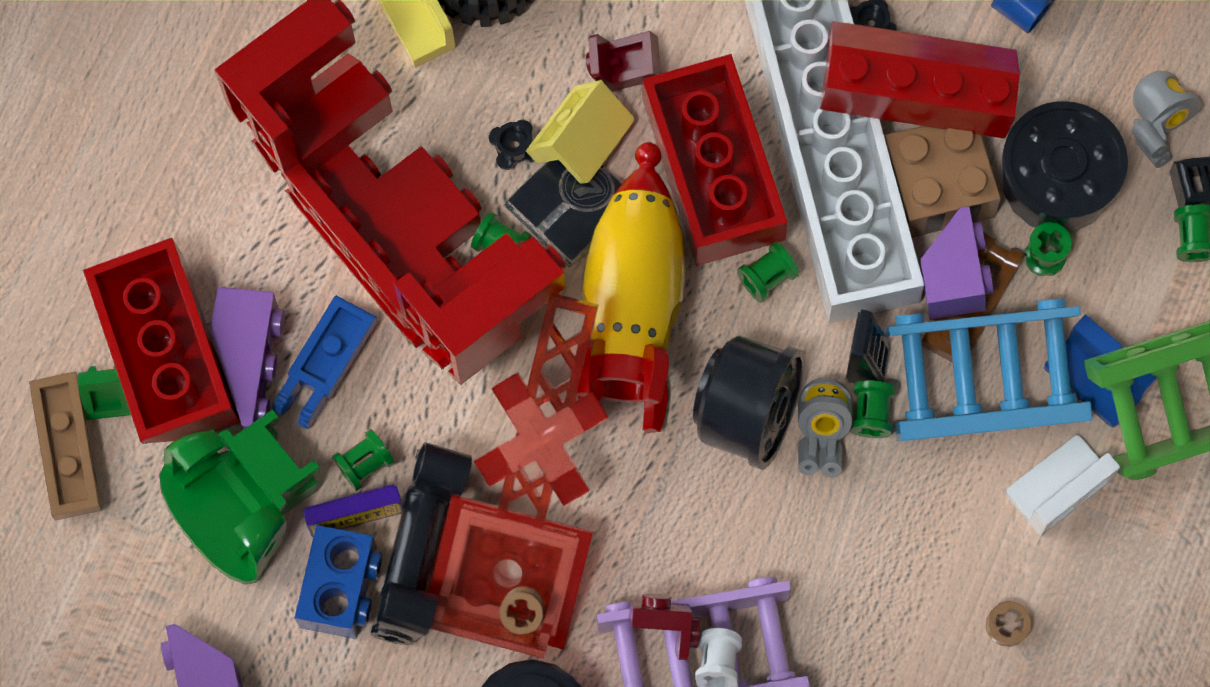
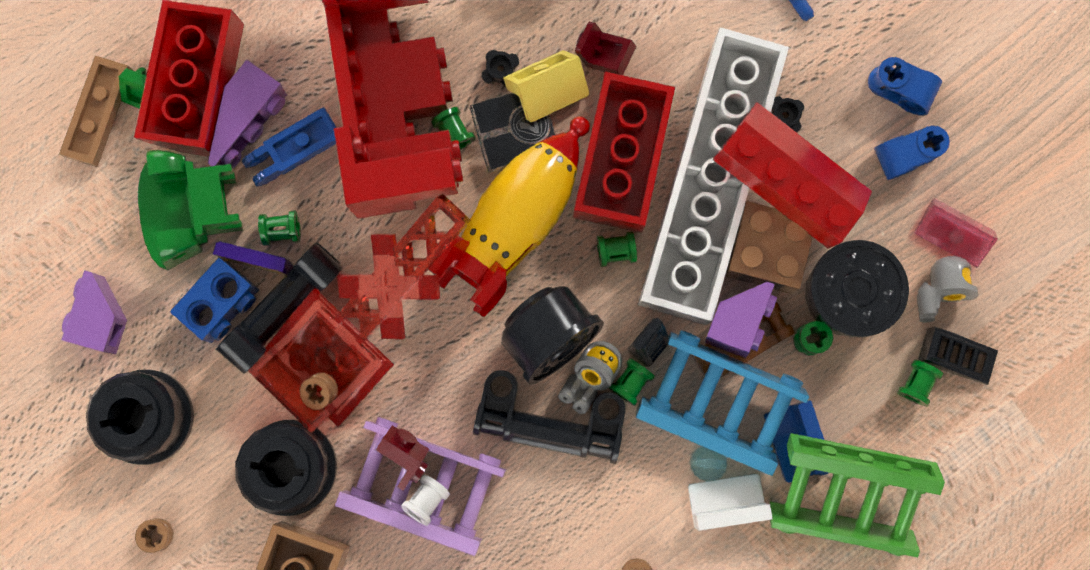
camera: 25 degrees right, 10 degrees up
(872, 492) = (549, 432): none -> black piece
(1013, 453) = (707, 464): none -> clear light blue tile
(1137, 50) = (956, 232): none -> clear pink slope

